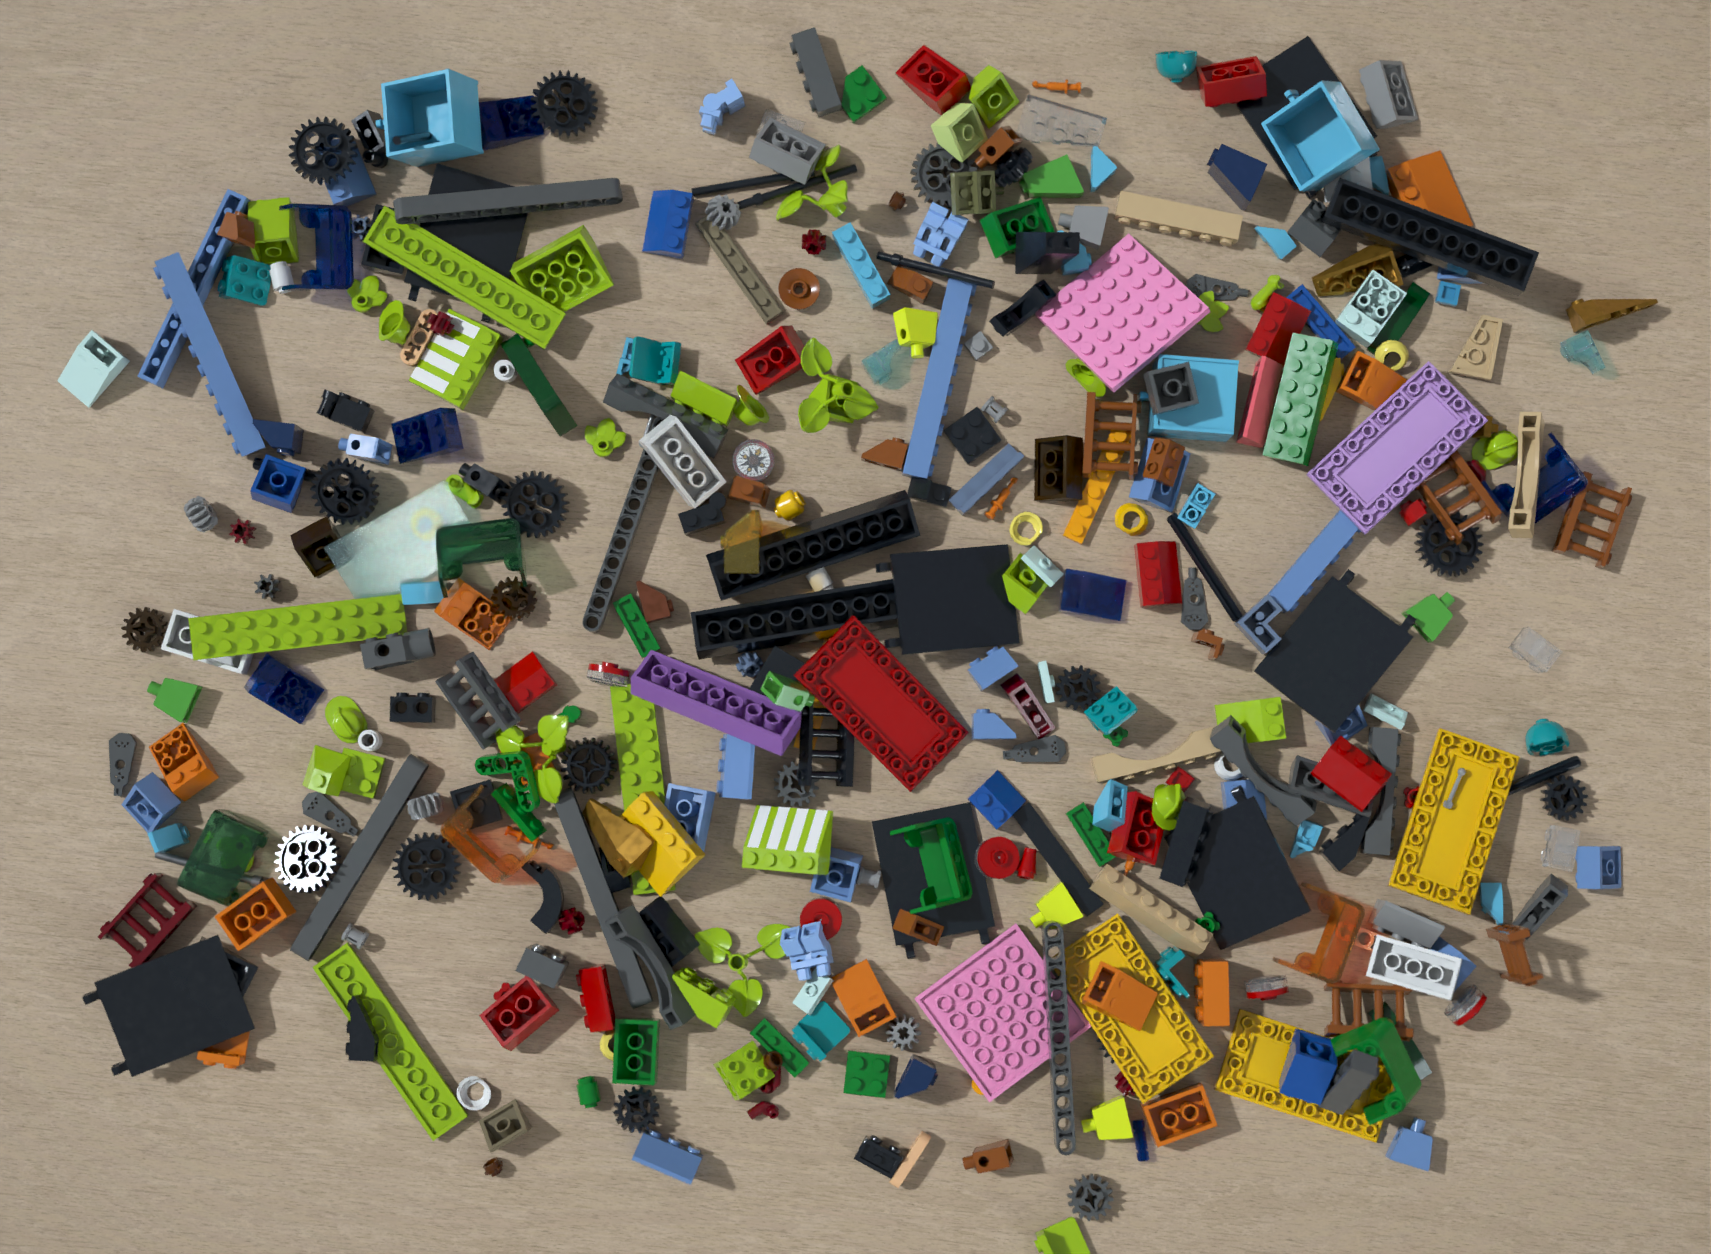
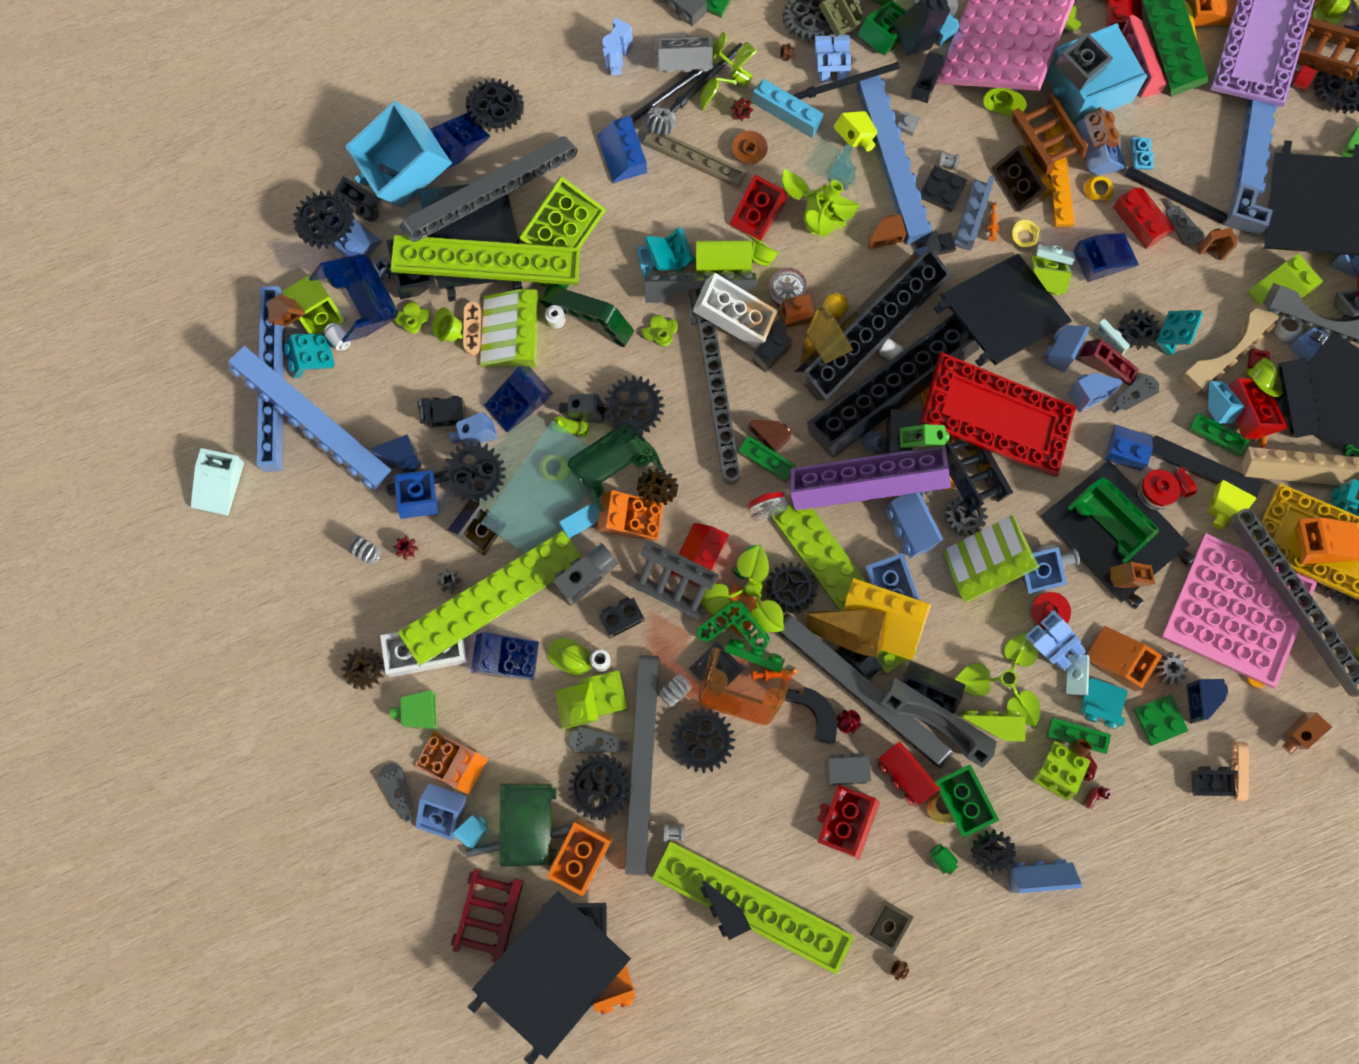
camera: 25 degrees left, 10 degrees down
(440, 323) = (484, 305): dark red gear -> none
(466, 1101) = (859, 914): white piece -> none
(911, 284) = (833, 102): dark orange slope -> none
(1121, 733) = (1193, 347): green plate -> none

